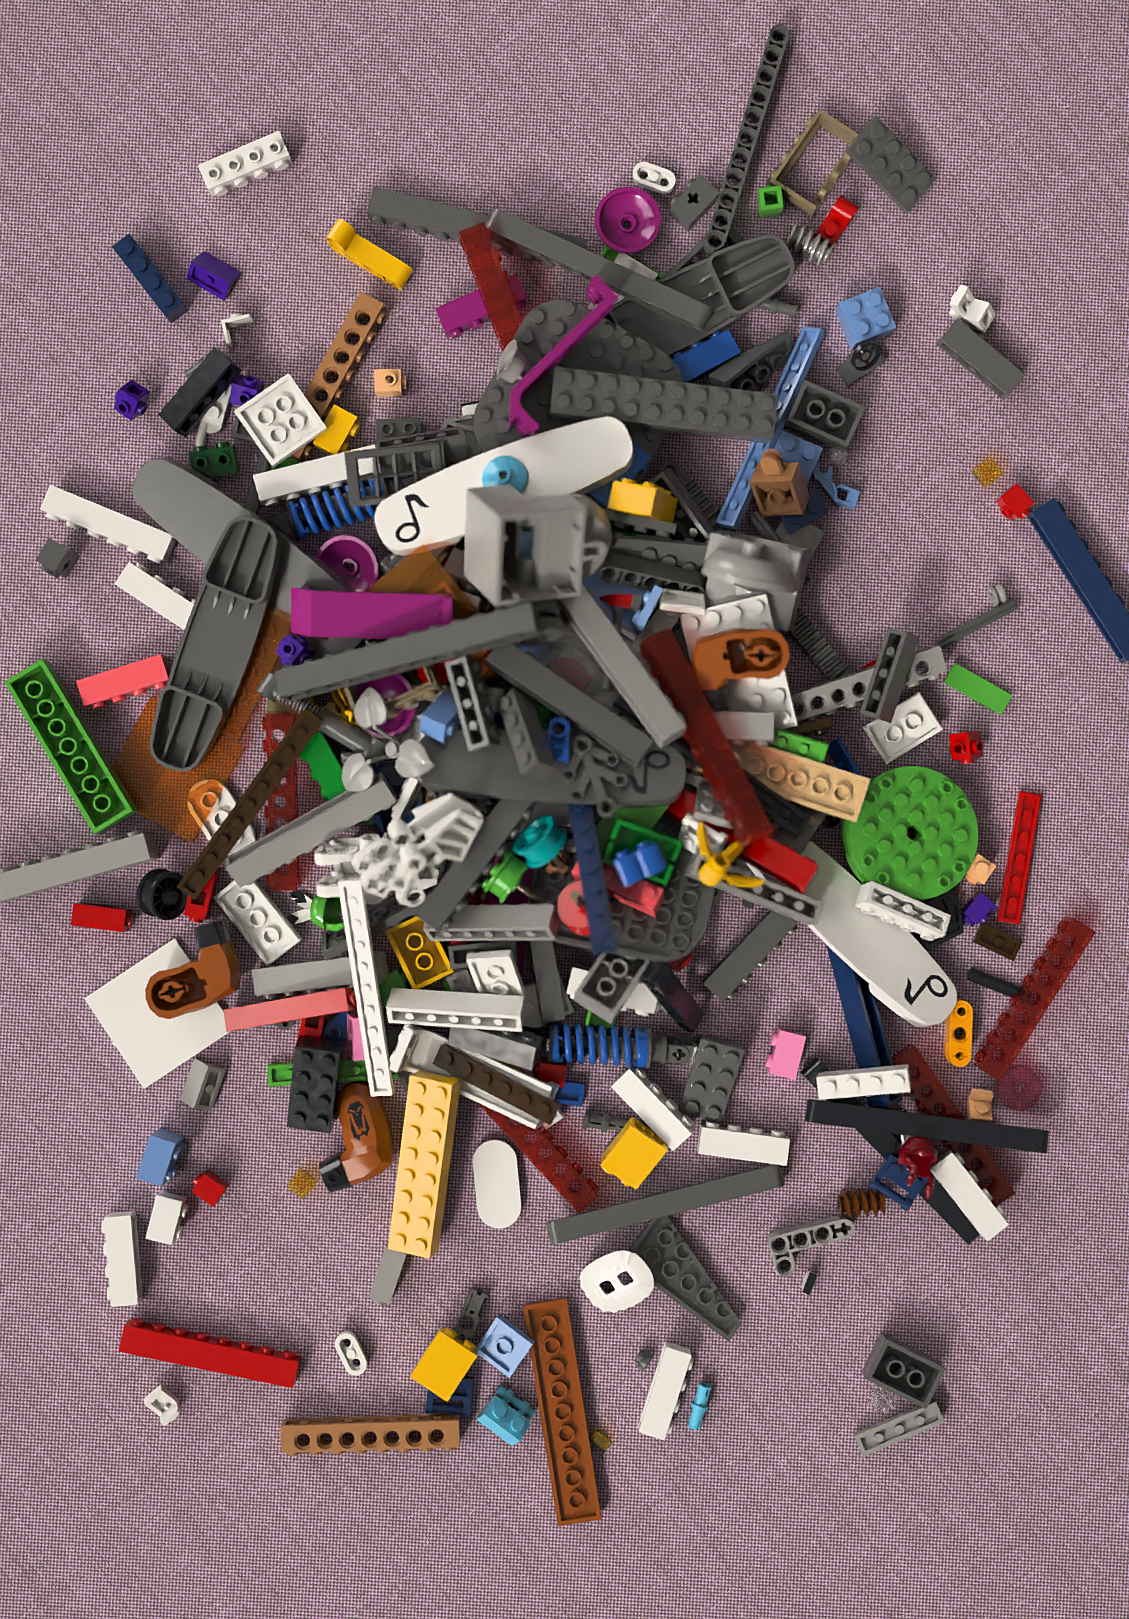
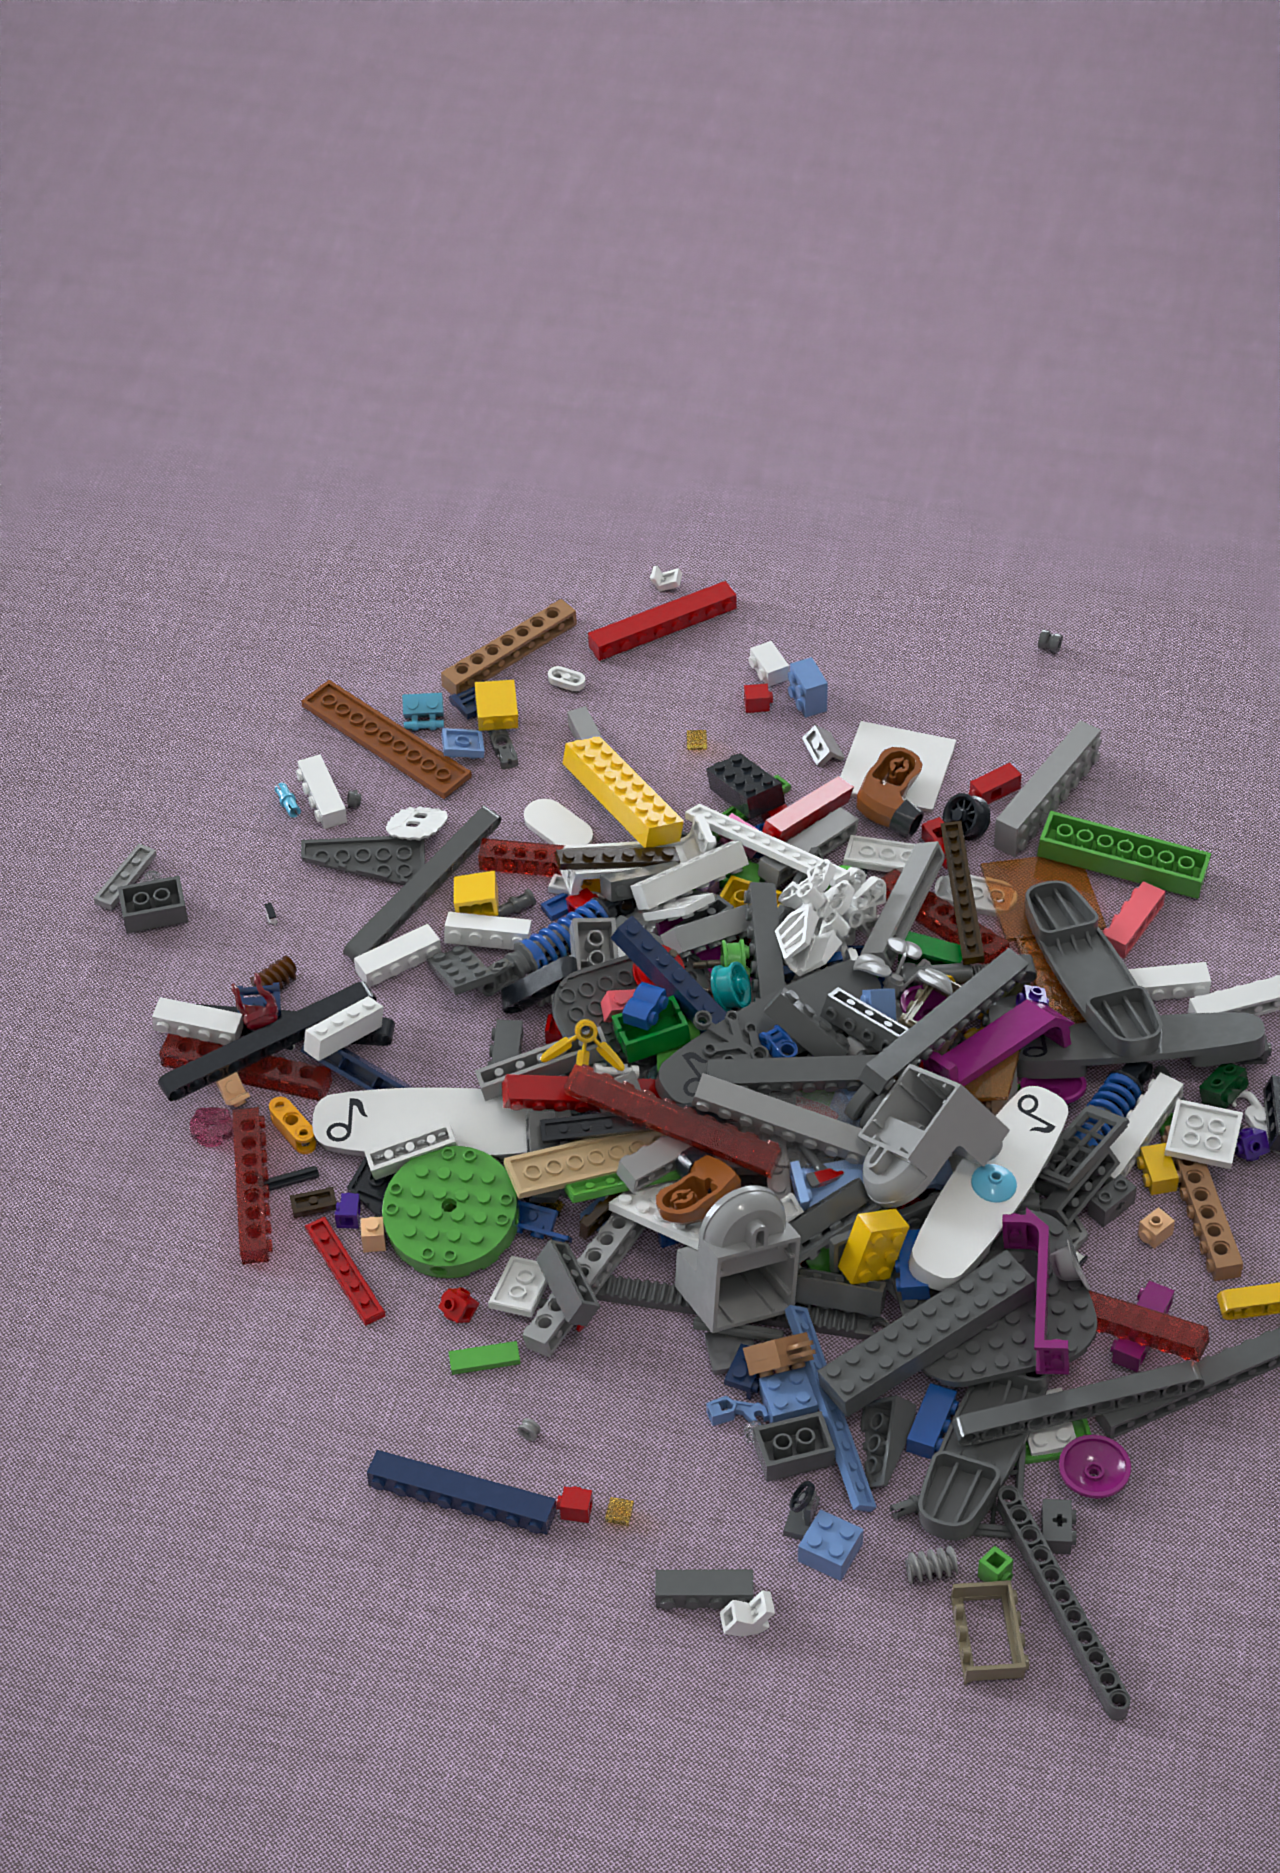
camera: 145 degrees right, 40 degrees down
(56, 559) = (1262, 949): dark grey brick -> none
(122, 1258) = (773, 627): white brick -> none
(366, 1138) = (677, 784): dark orange piece -> none
(600, 1440) = (342, 742): clear yellow piece -> none
(655, 176) = (1107, 1522): white plate -> none
(785, 1053) = (417, 1027): bright pink brick -> none
(811, 1239) = (307, 926): light grey beam -> none
(837, 220) = (927, 1606): red plate -> none
(890, 164) = (924, 1673): dark grey plate -> none
(977, 623) = (526, 1401): dark grey axle -> none

